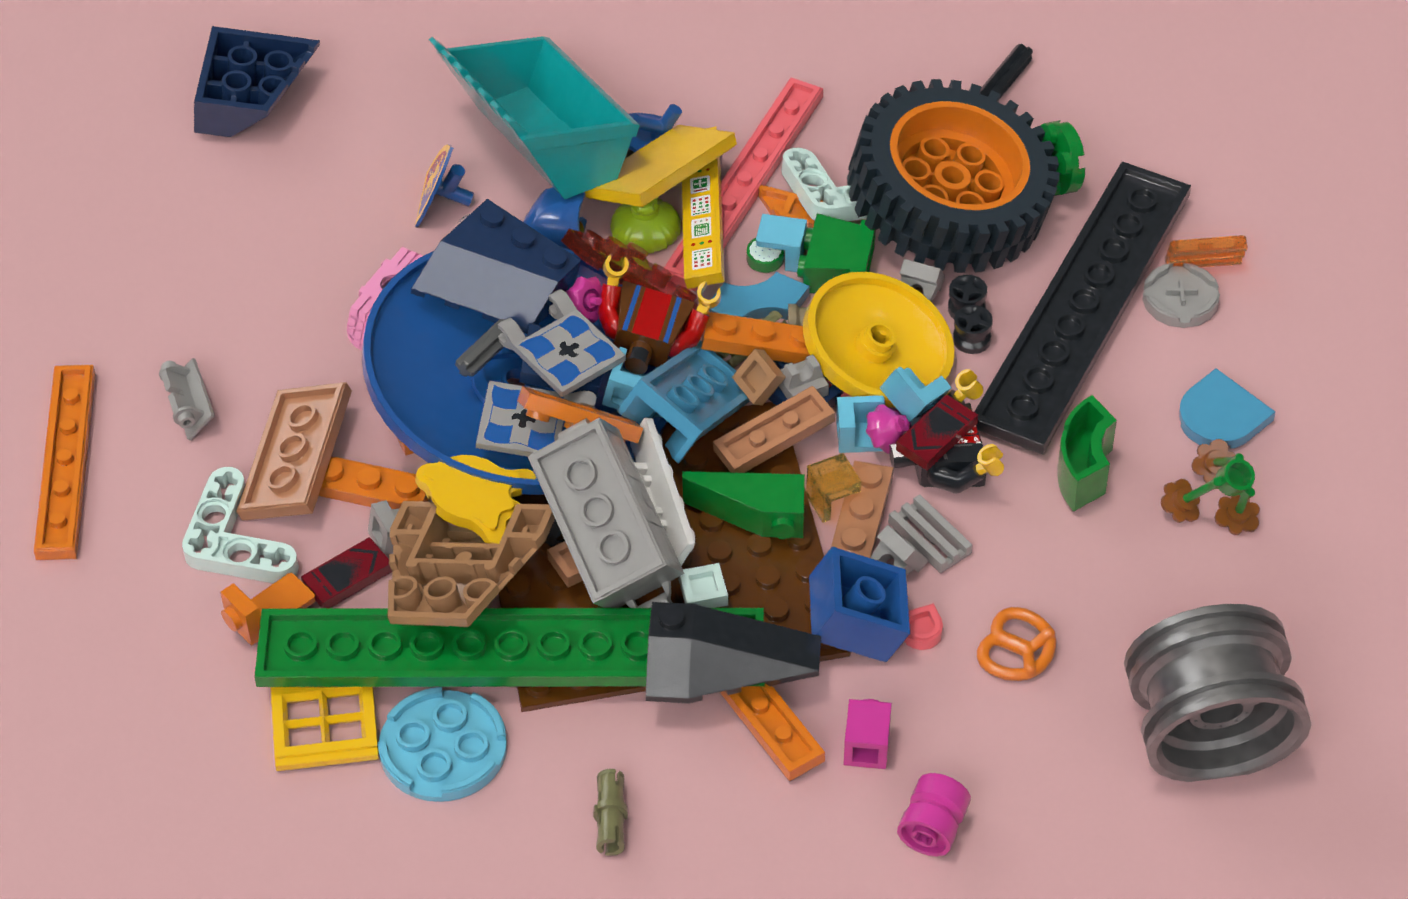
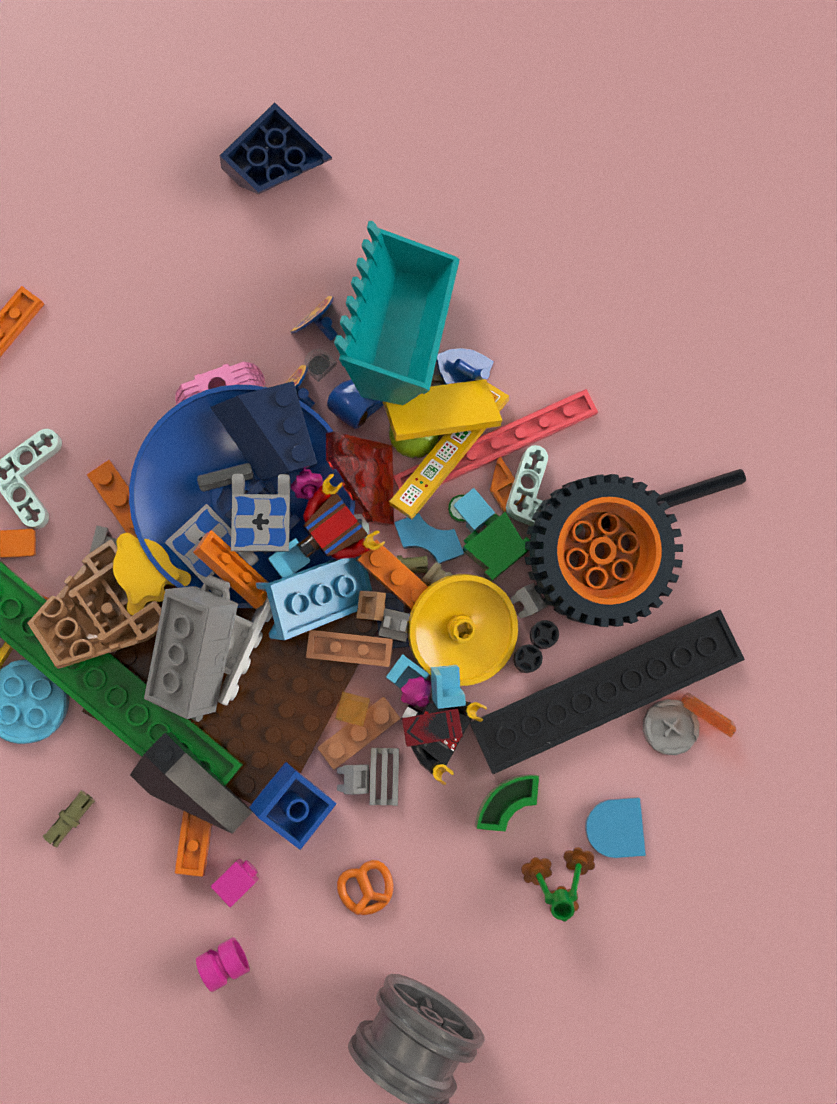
camera: 35 degrees right, 30 degrees up
(187, 397) = (65, 375): light grey hinge -> none
(294, 451) = (95, 449): nougat tile -> none
(347, 573) = (61, 550): dark red tile -> none
(704, 586) = (225, 722): light aqua plate -> none
(754, 501) = (300, 691): green slope -> none
(925, 627) = (328, 834): coral tile -> none
(1067, 149) = (685, 585): green plate -> none

